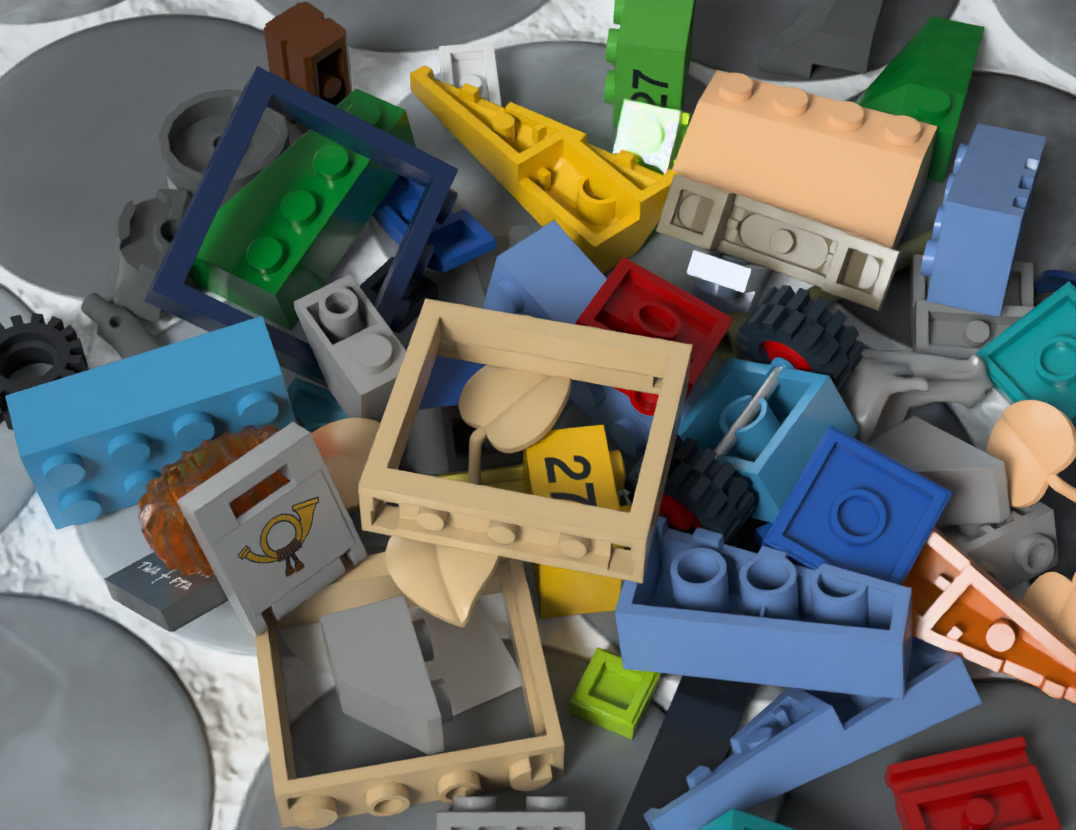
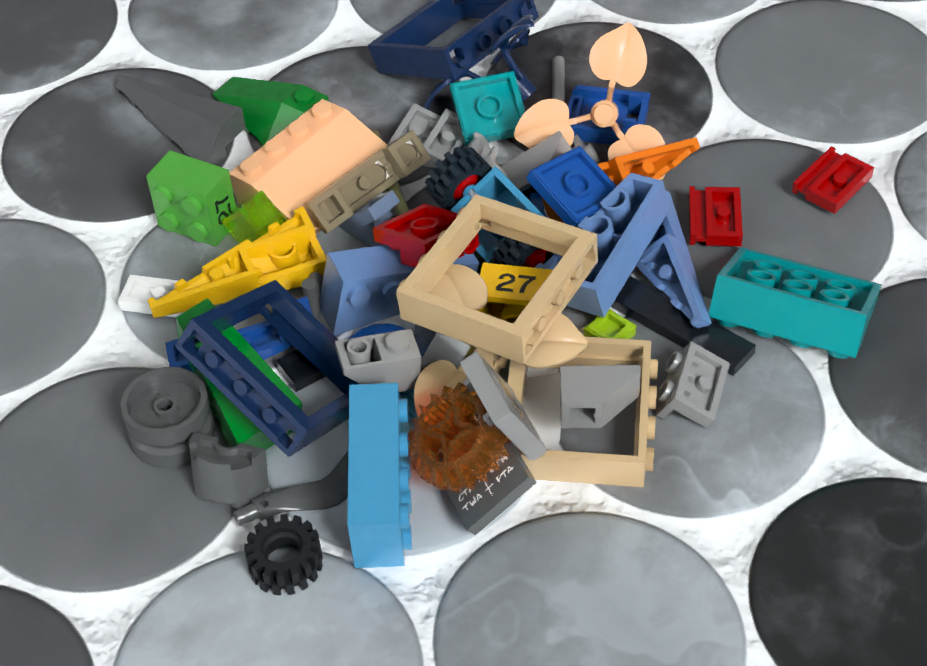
camera: 70 degrees left, 5 degrees down
(309, 53) = (113, 354): reddish brown brick -> none
(982, 219) = (392, 99): medium blue wedge -> none

